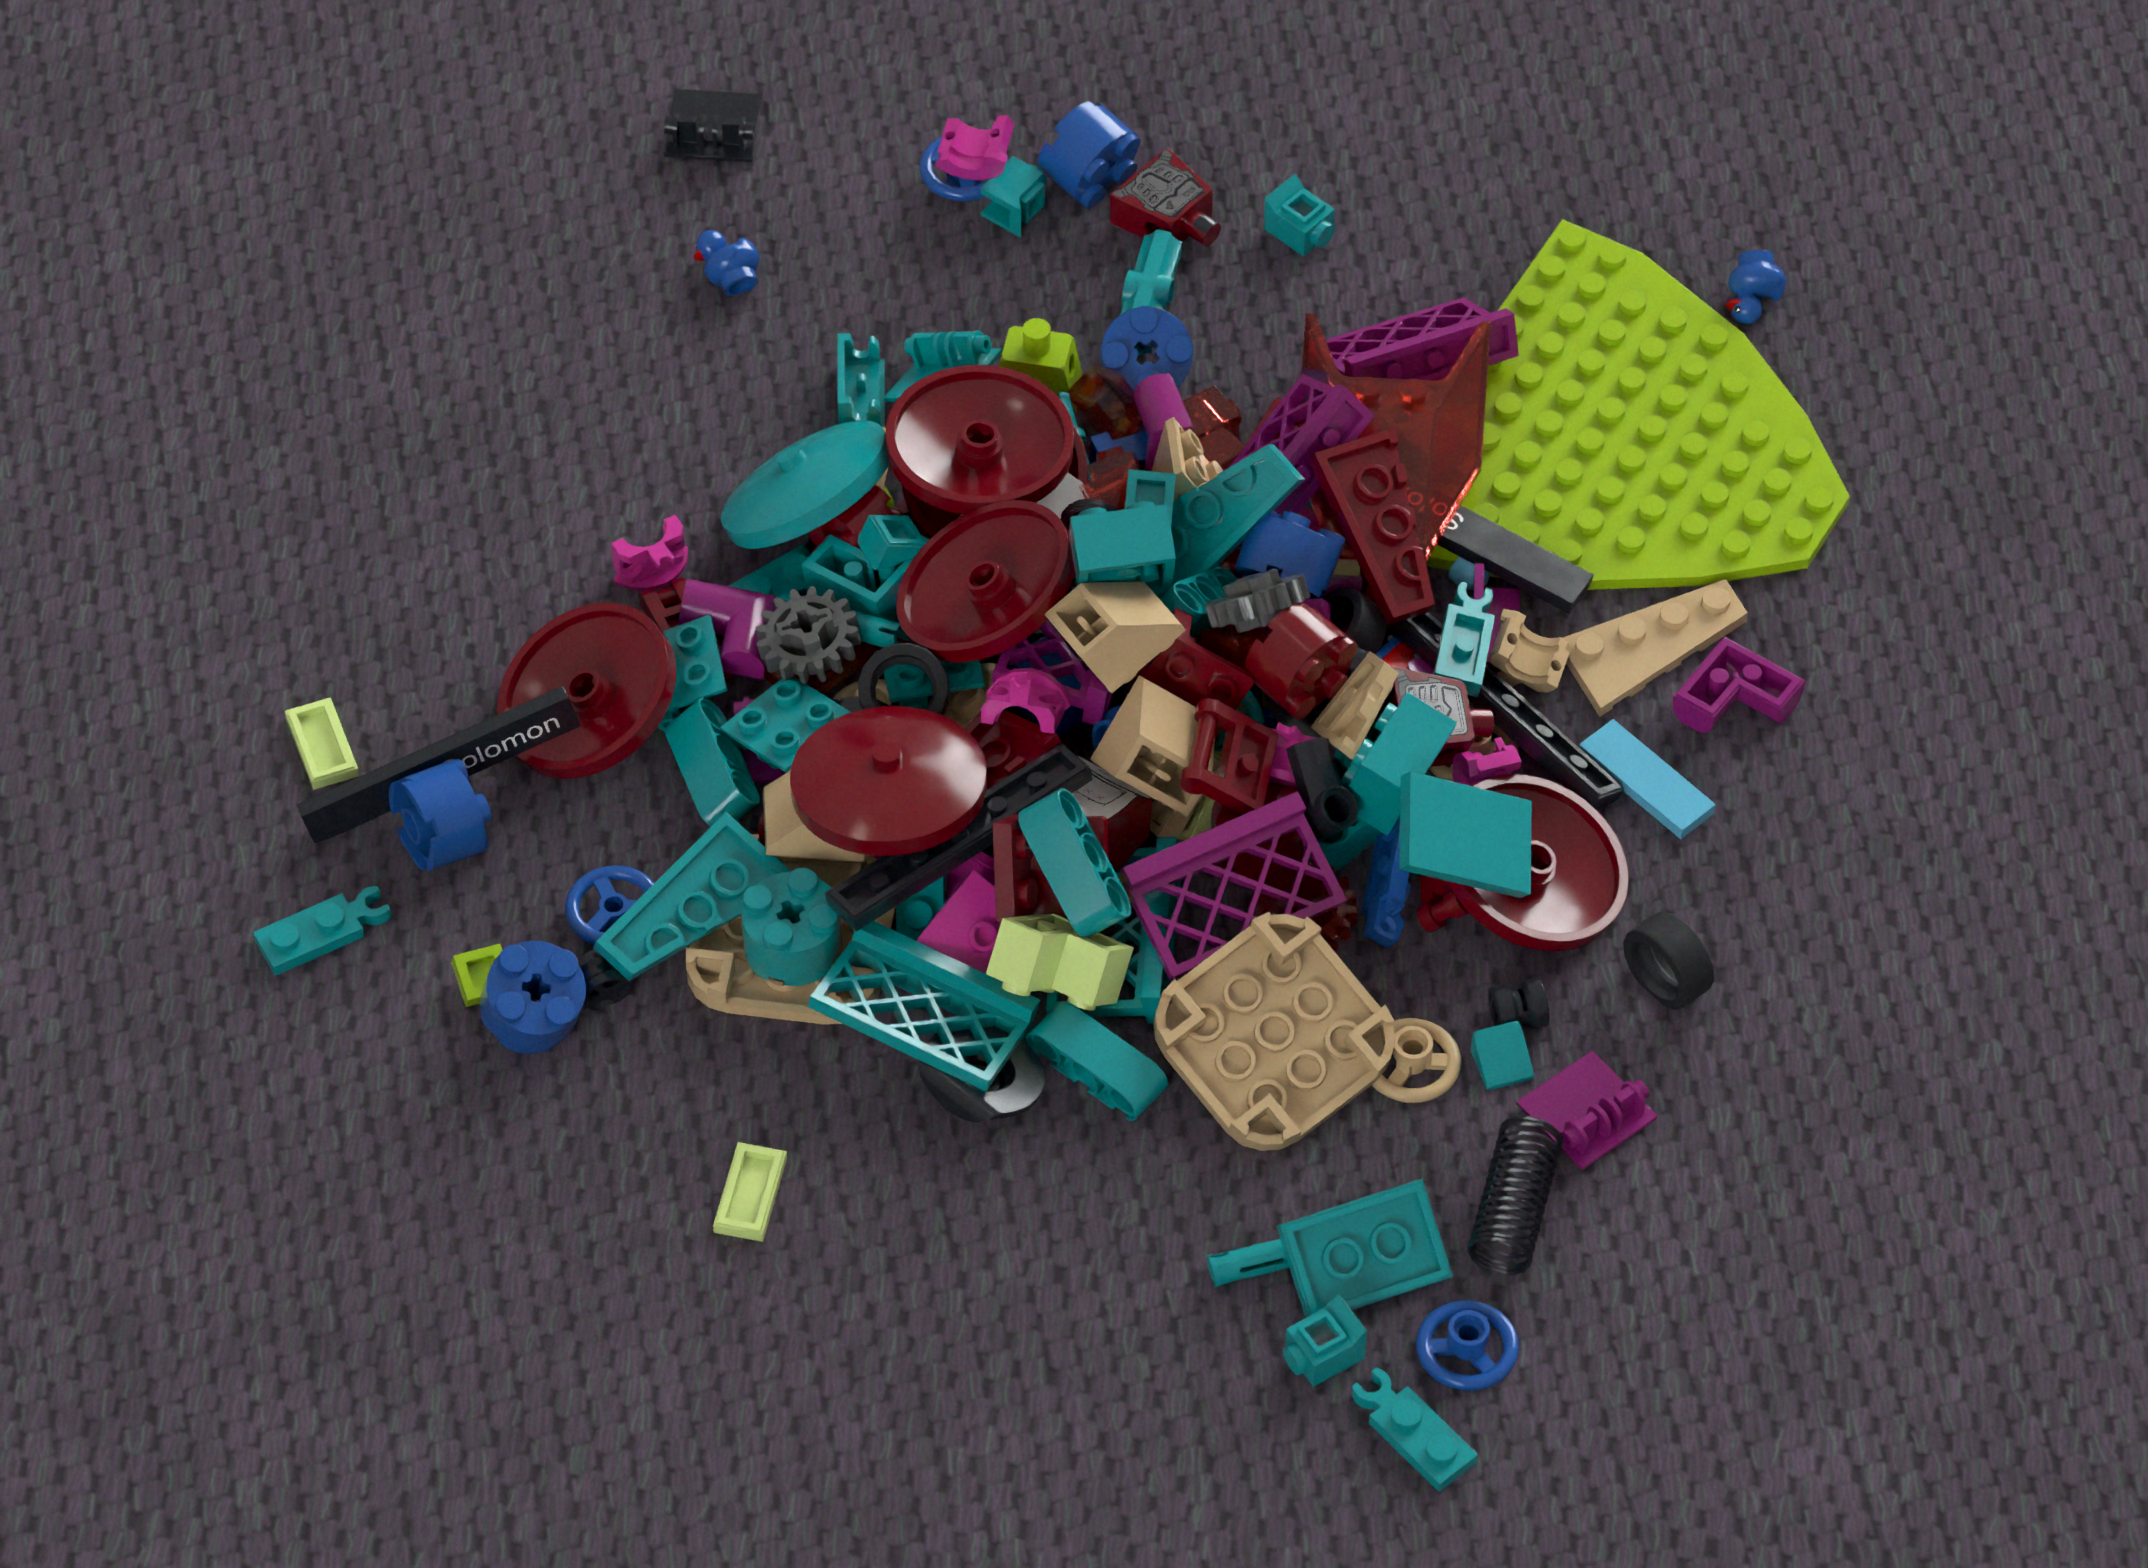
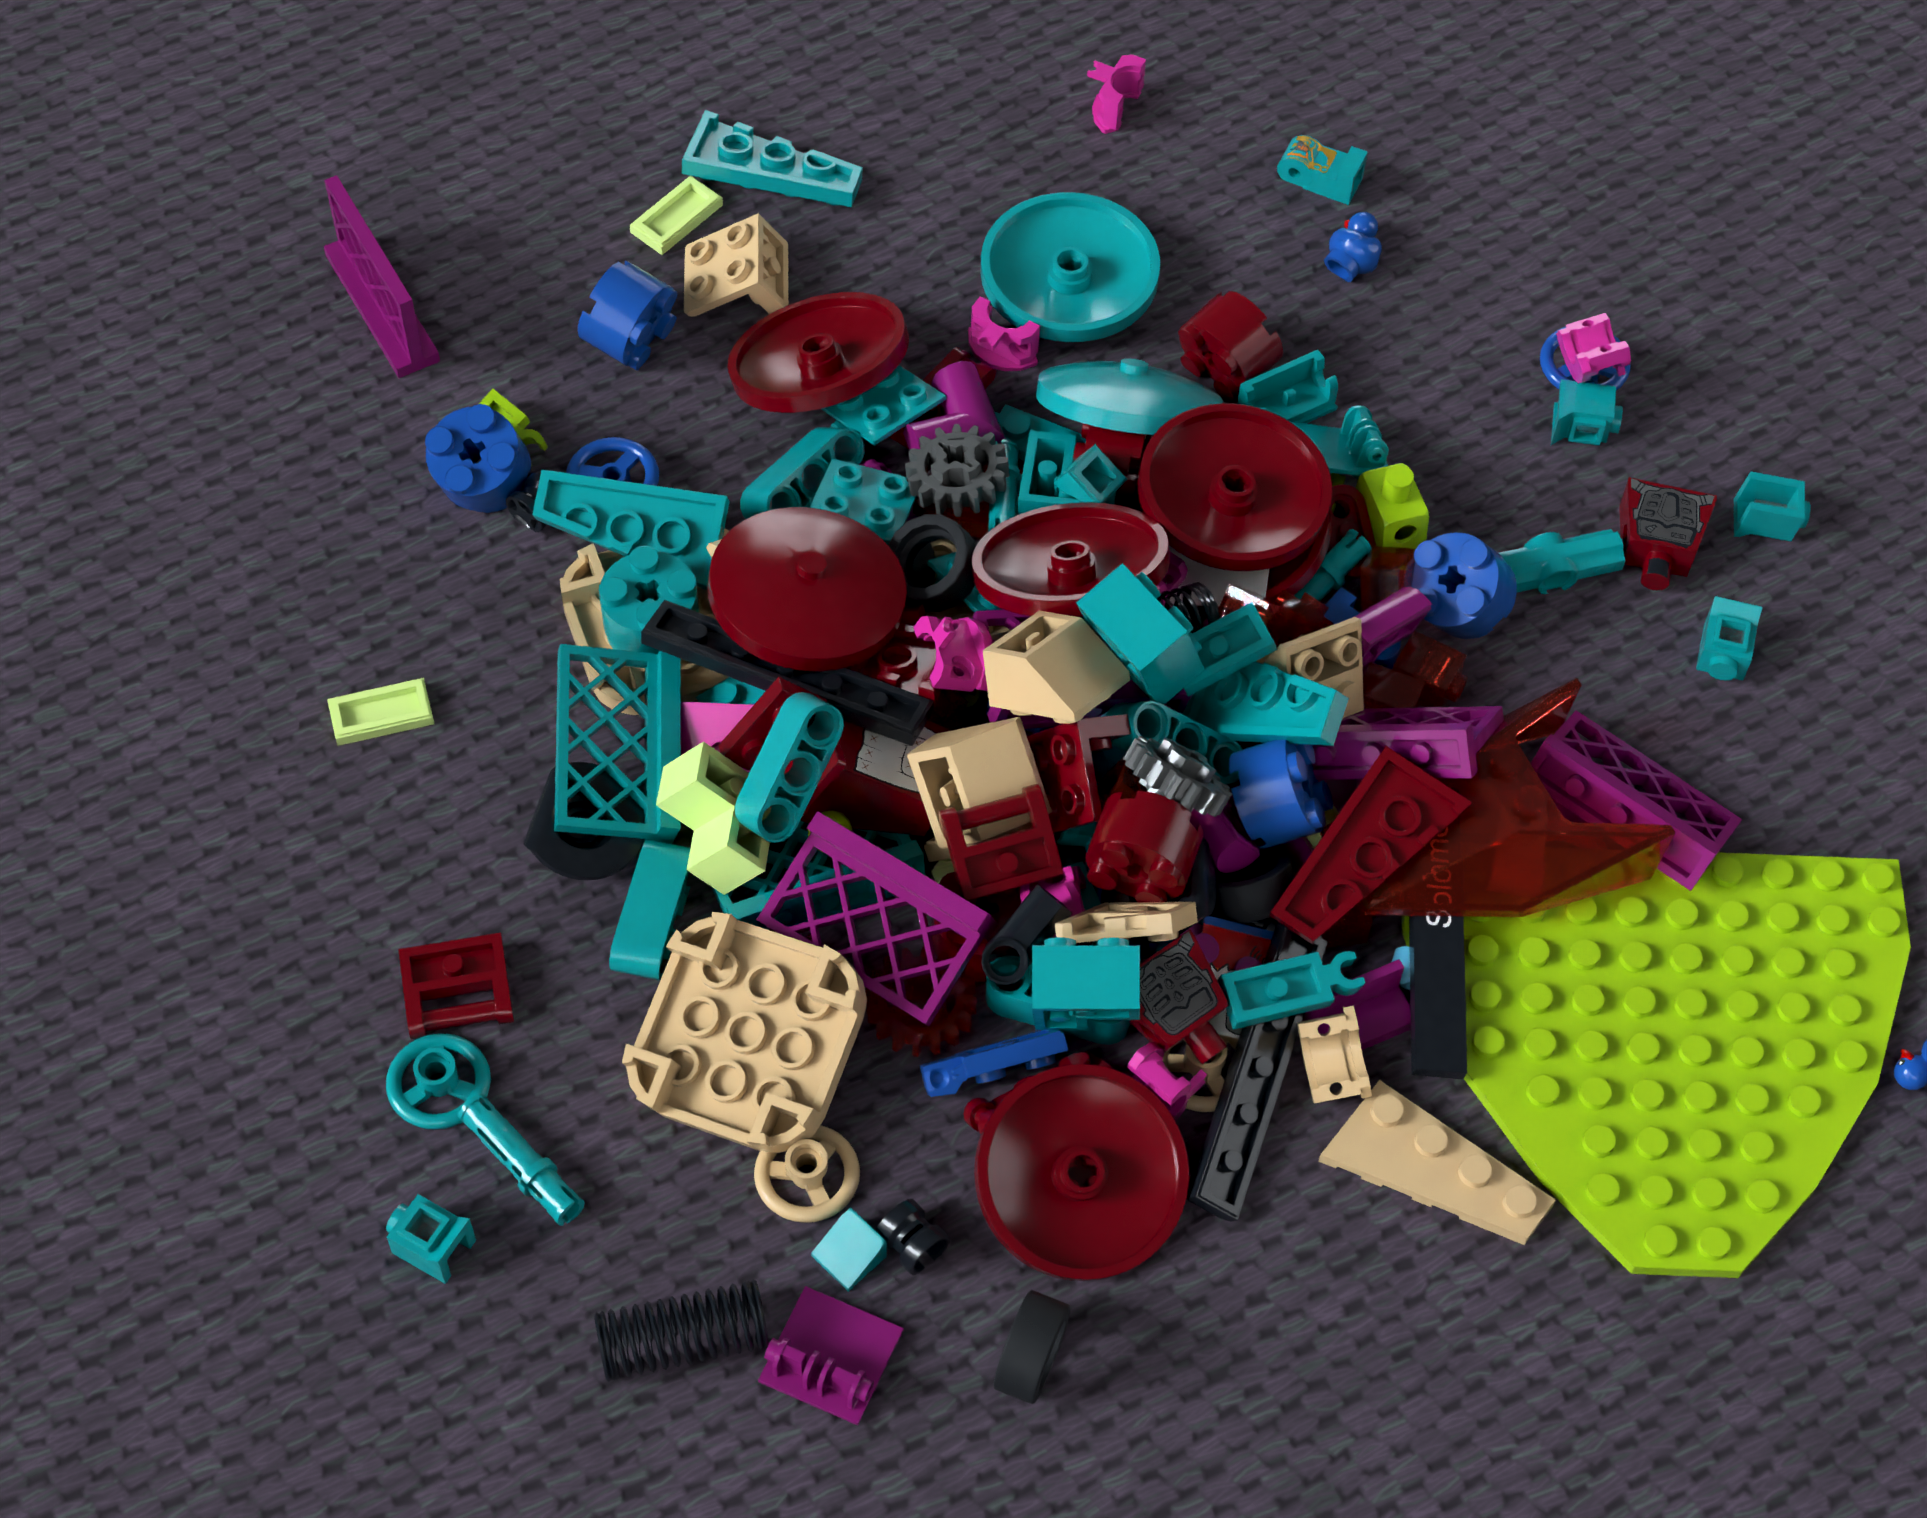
camera: 60 degrees right, 5 degrees up
(247, 1015) = (376, 287): none -> magenta fence
(315, 646) = (775, 166): none -> teal wing
(319, 930) = (487, 297): teal plate -> none
(422, 712) = (734, 263): none -> tan bracket
(427, 358) = (1120, 82): none -> dark pink piece
(476, 747) = (695, 298): black tile -> none
(613, 467) = (1070, 266): none -> teal dish
(623, 242) = (1323, 168): none -> teal leg
(712, 125) = (1500, 172): black hinge -> none
(784, 393) = (1229, 343): none -> dark red brick
(1067, 1231) = (454, 970): none -> dark red plate
(1090, 153) = (1667, 440): blue brick -> none
(1172, 1266) = (430, 1060): none -> teal piece
(1190, 124) = (1770, 507): none -> teal window
(1365, 1249) = (547, 1224): teal tile -> none
(1416, 1431) = (375, 1365): teal plate -> none
(1465, 834) = (1032, 1083): teal tile -> none
(1469, 1321) = (494, 1347): blue piece -> none
(1648, 779) = (1264, 1236): medium azure tile -> none
(1733, 675) = (1436, 1257): magenta brick -> none

